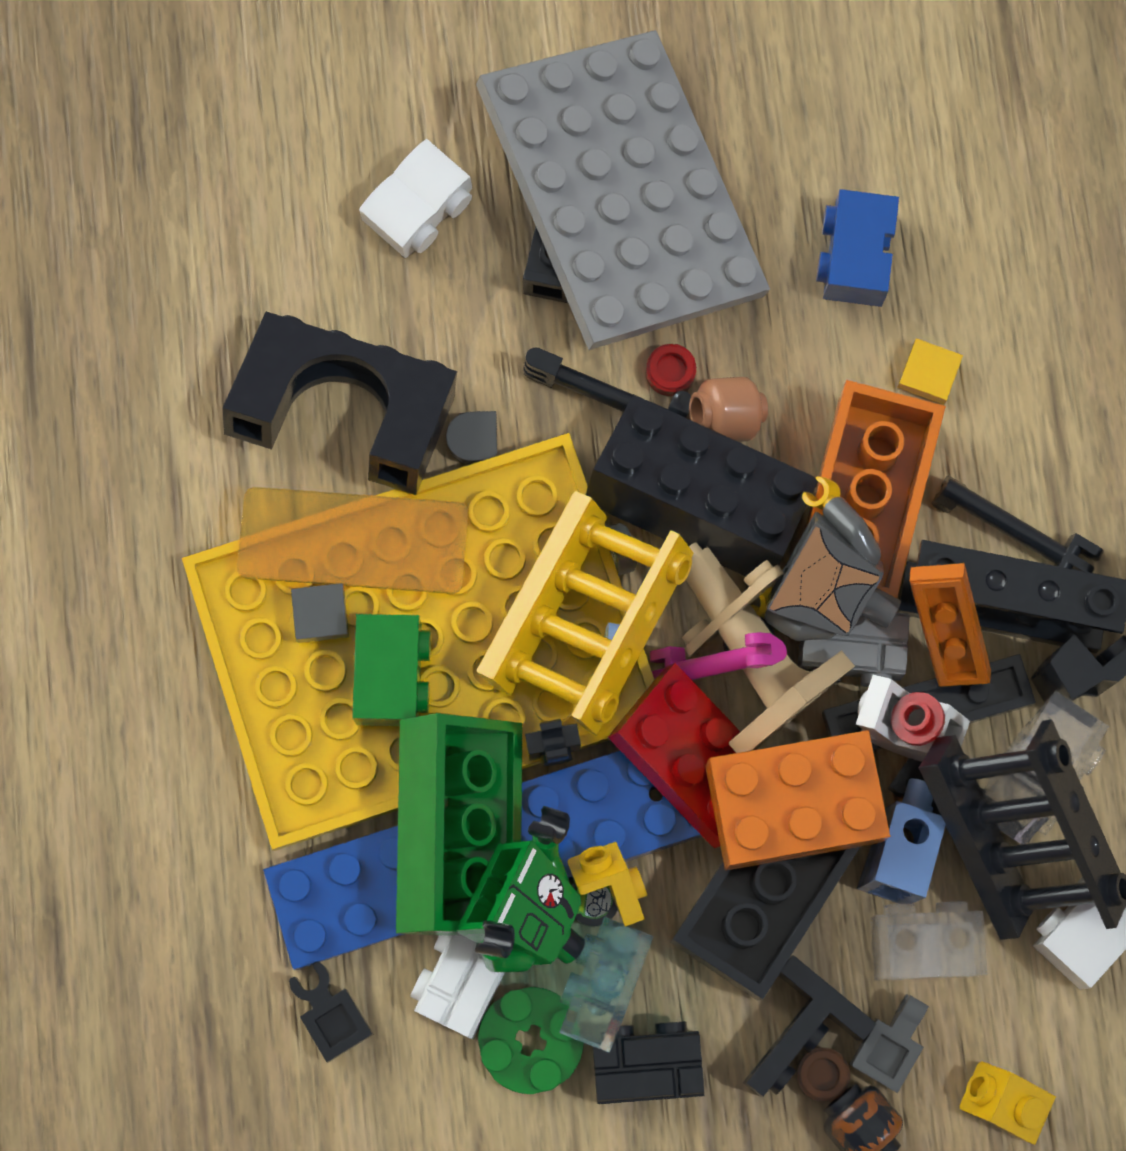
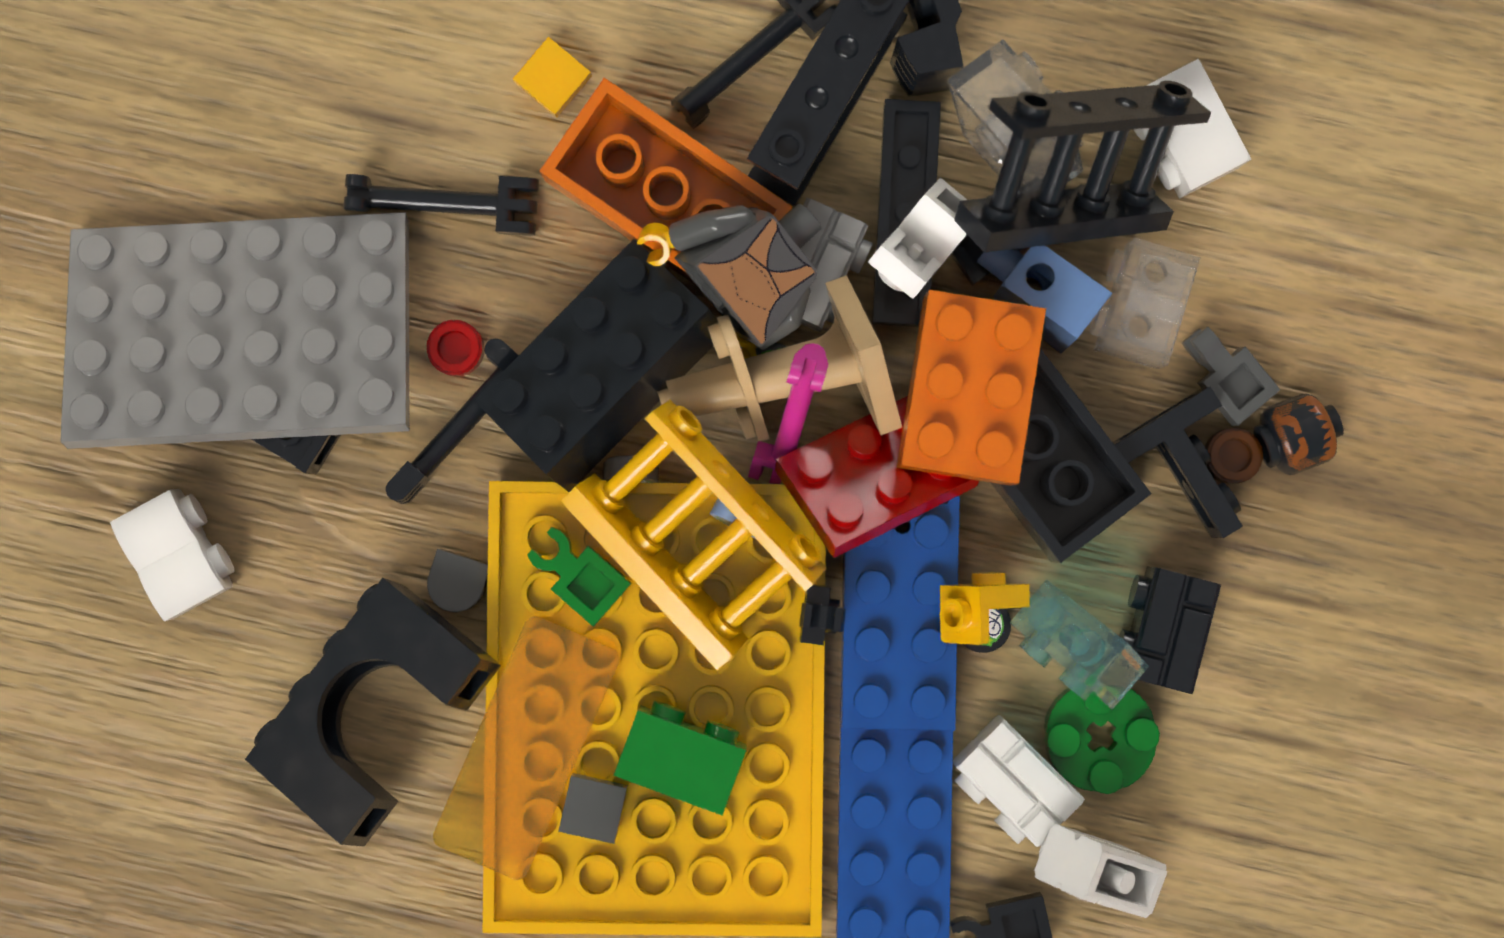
camera: 75 degrees left, 10 degrees up
(412, 1073) = (1100, 871): none -> white brick
(453, 810) = (873, 742): green slope -> none
(513, 539) = (586, 581): none -> green plate
(526, 902) = (979, 704): green torso -> none
(729, 407) = (522, 303): nougat head -> none
(806, 367) = (504, 205): none -> black hinge
(859, 232) = (377, 96): blue brick -> none
(928, 729) = (936, 216): plate -> none
(950, 624) = (842, 161): orange tile -> none
(1007, 1102) = (1324, 284): yellow bracket -> none

